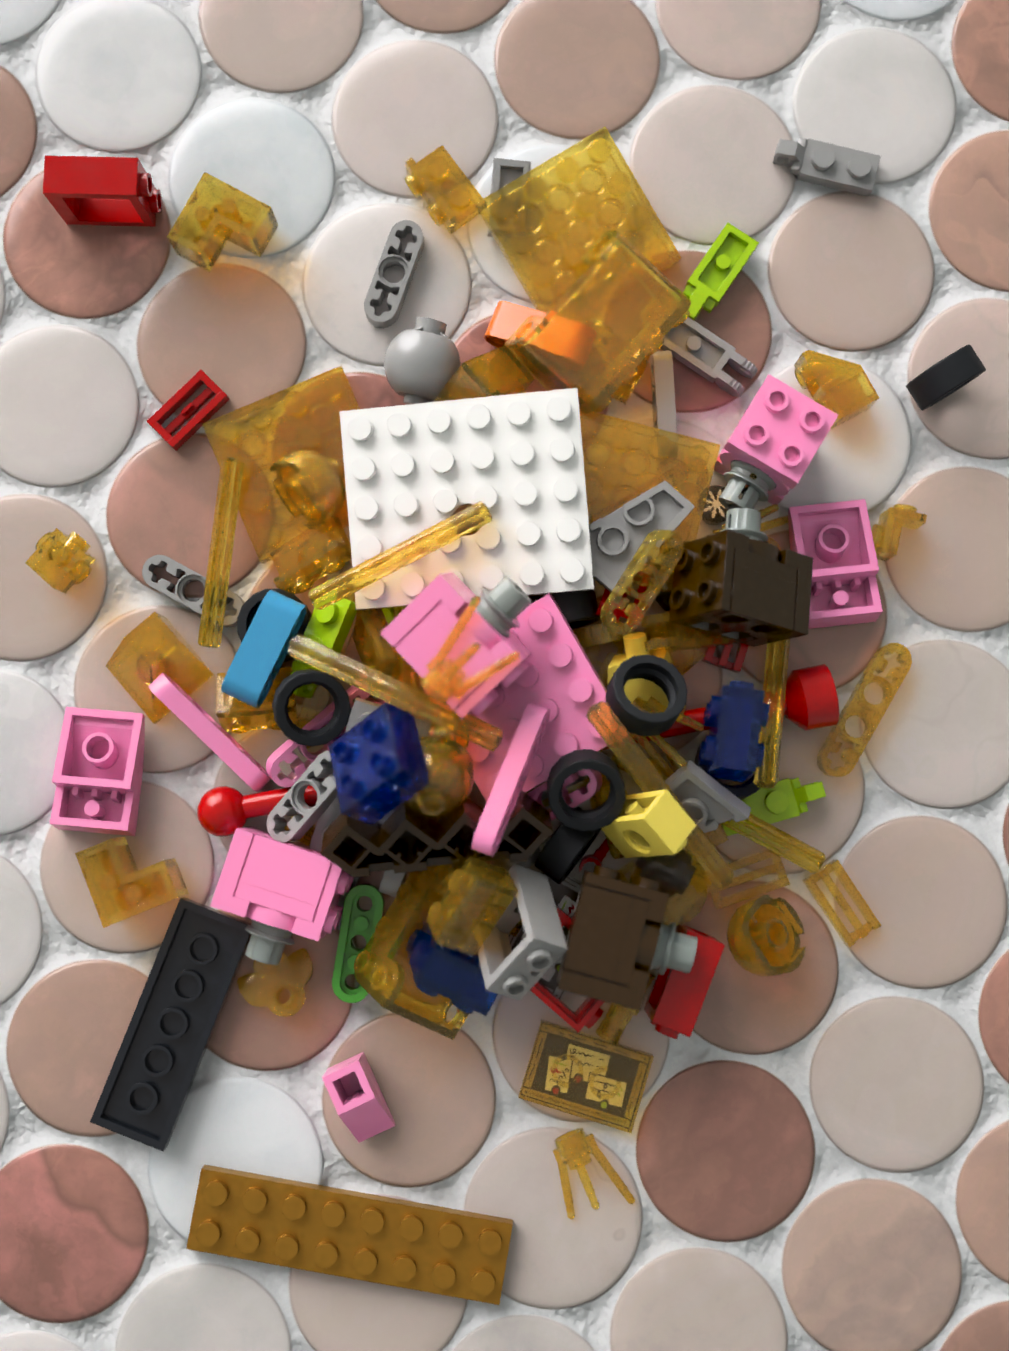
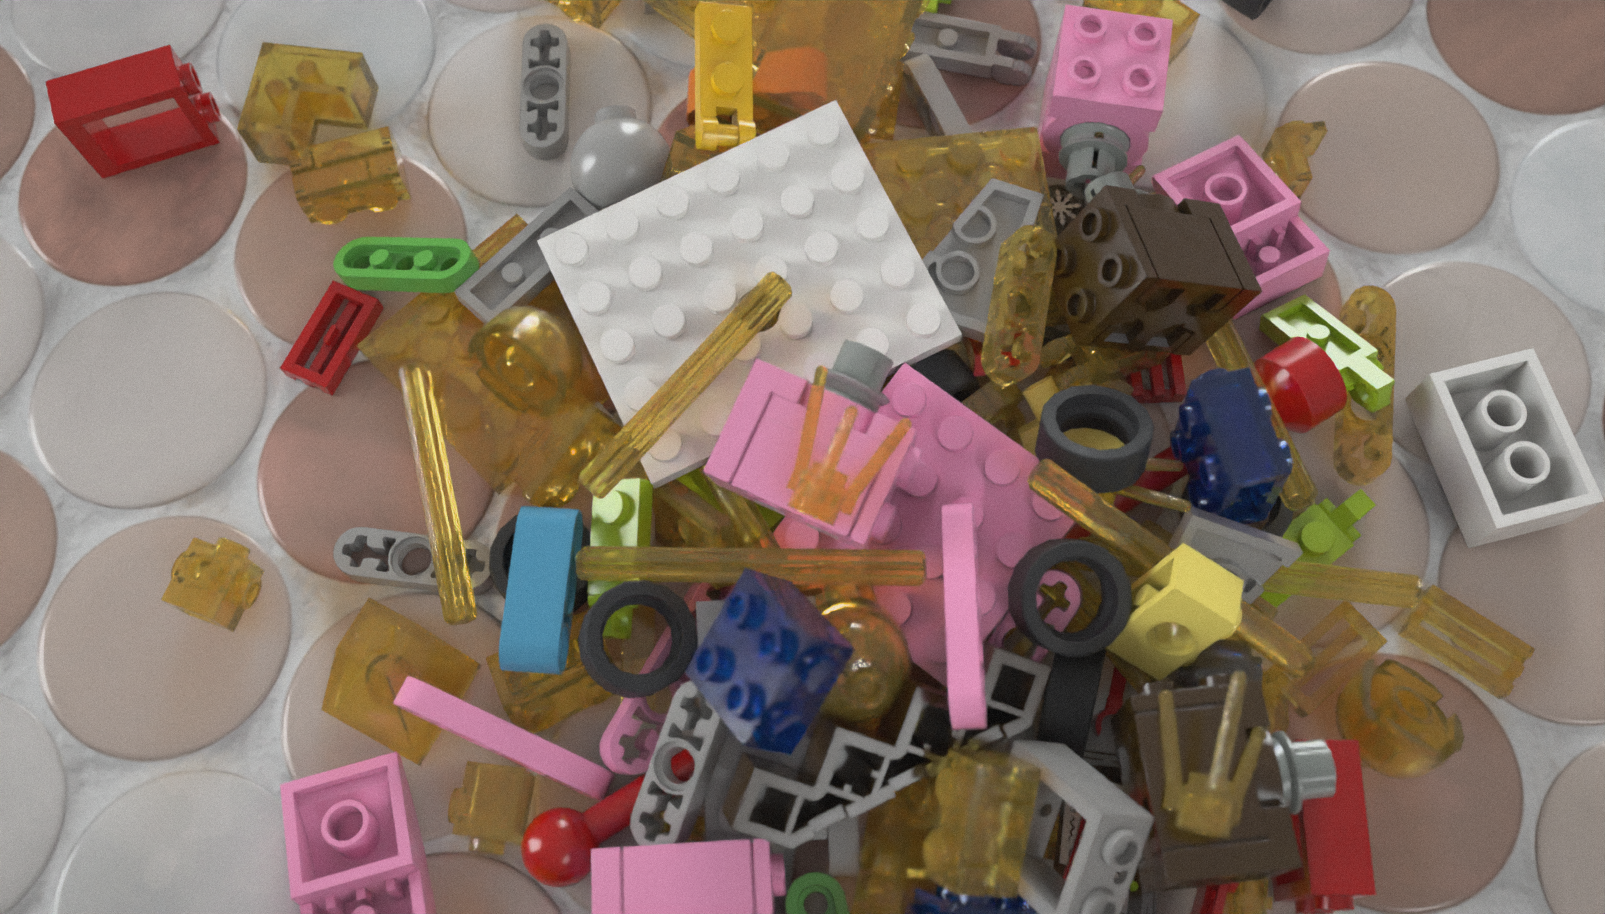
camera: 20 degrees left, 15 degrees down
(189, 770) = (491, 806): none -> clear yellow brick
(235, 293) = (349, 176): none -> clear yellow brick
(273, 389) = (406, 264): none -> bright green plate
(320, 418) = (519, 268): none -> light grey plate
(509, 336) = (723, 75): none -> yellow plate
(598, 956) = (1209, 802): none -> clear yellow plant
(850, 678) = (1350, 353): none -> lime hinge
(926, 791) = (1502, 448): none -> white brick

